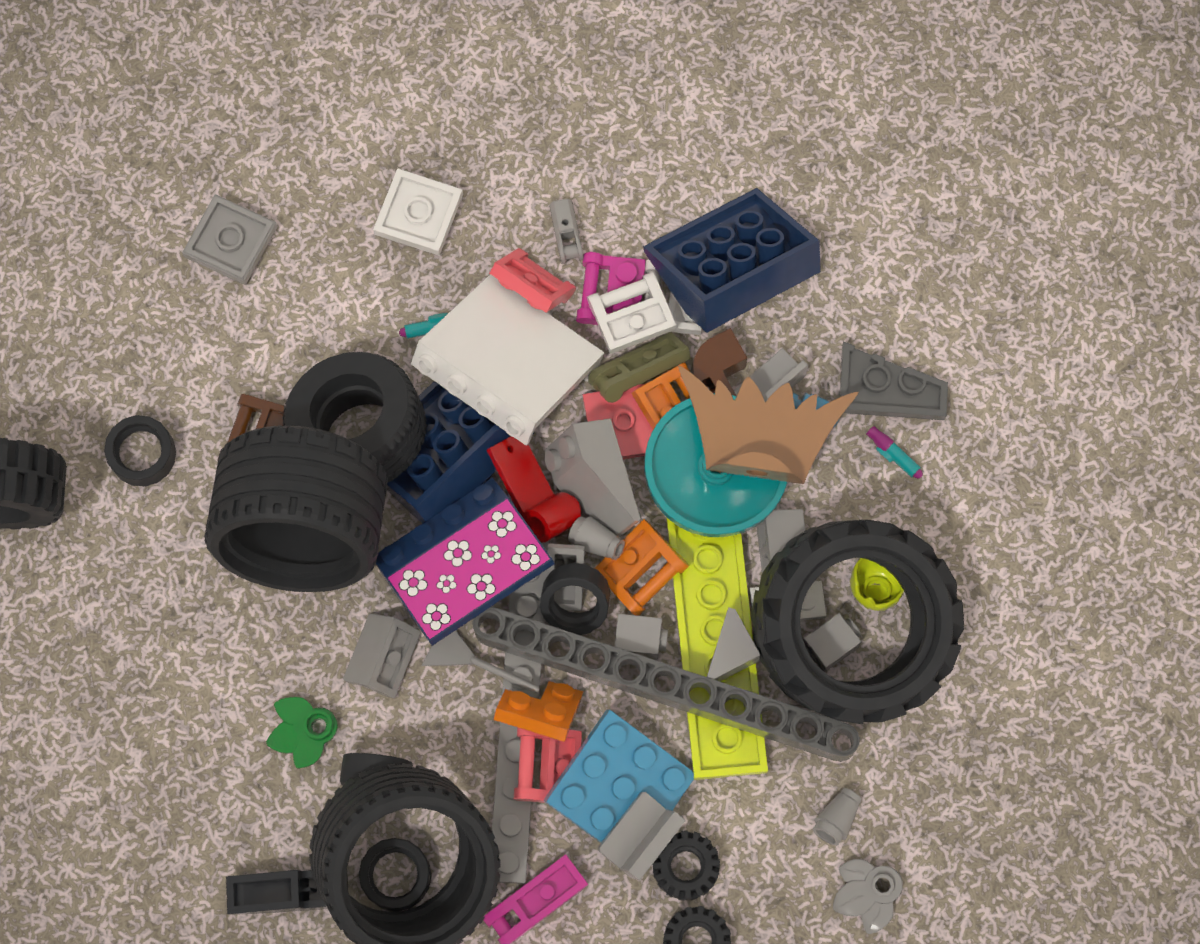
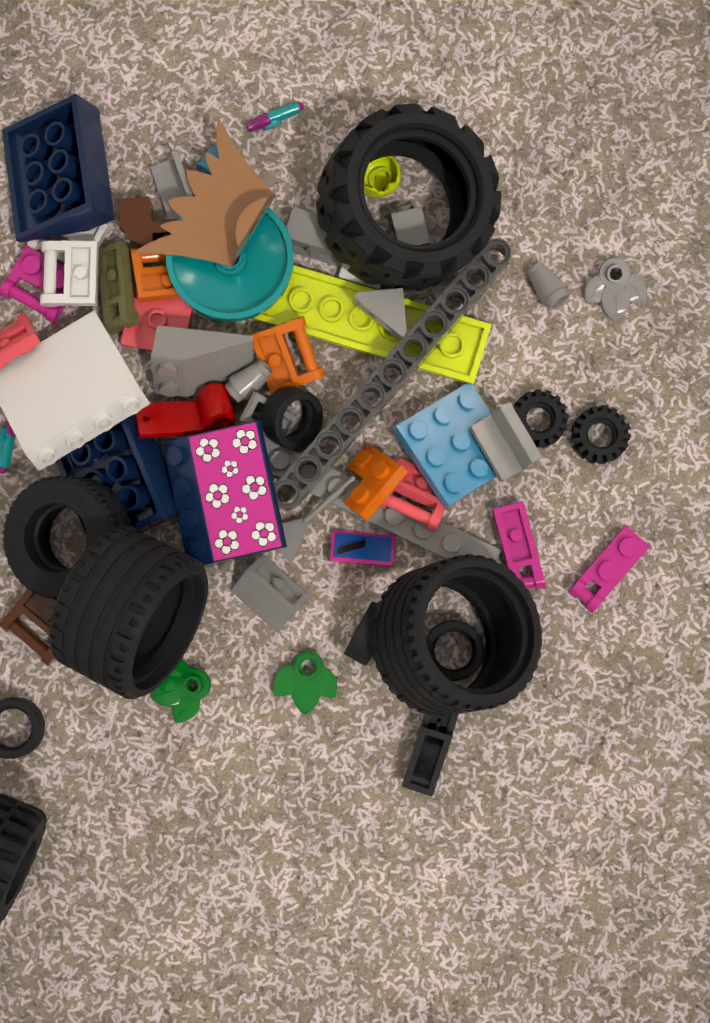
camera: 70 degrees left, 10 degrees up
(240, 601) = (178, 693): none -> green plate
(468, 733) = (362, 548): none -> slope
(641, 635) = (342, 379): light grey brick -> none
(889, 388) = (219, 96): dark grey wing -> none

